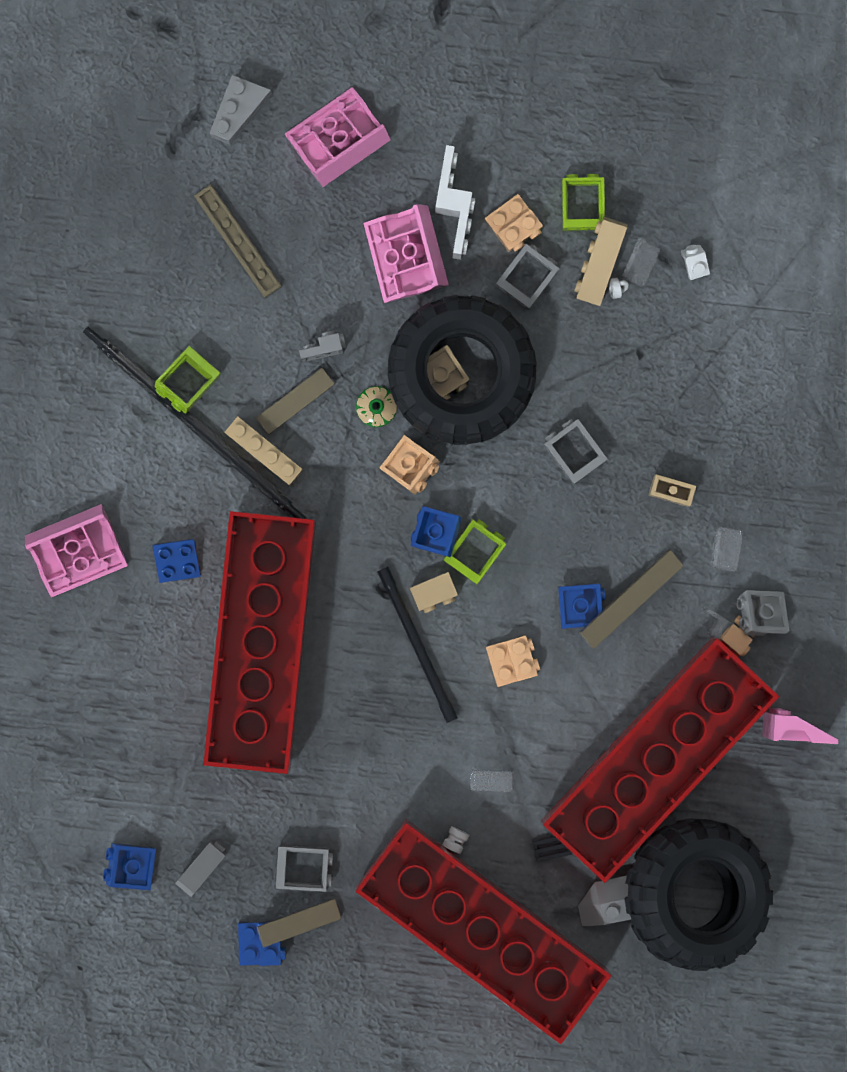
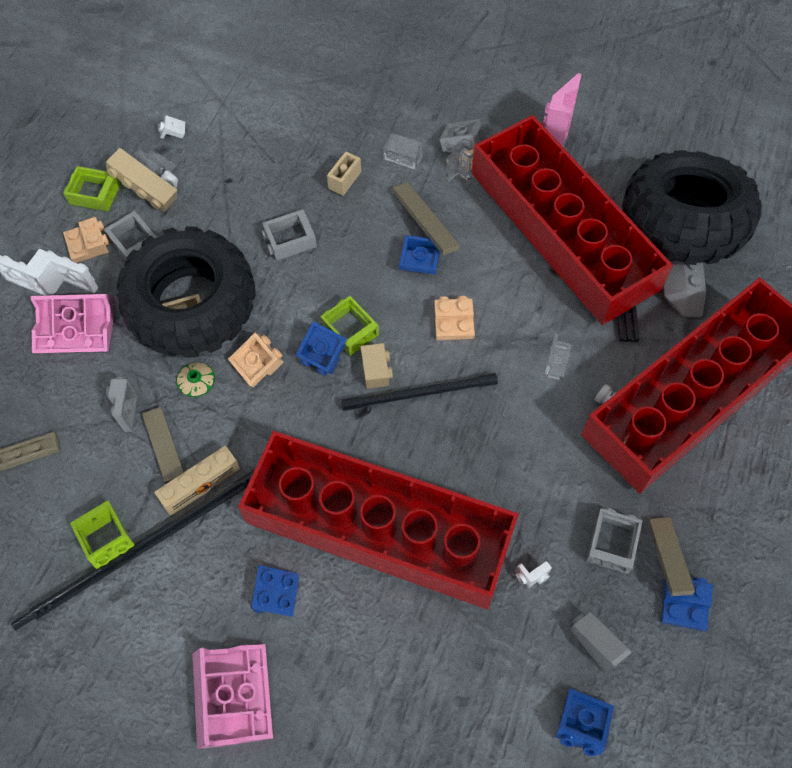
camera: 70 degrees left, 25 degrees down
(251, 801) = (538, 575): none -> white bracket

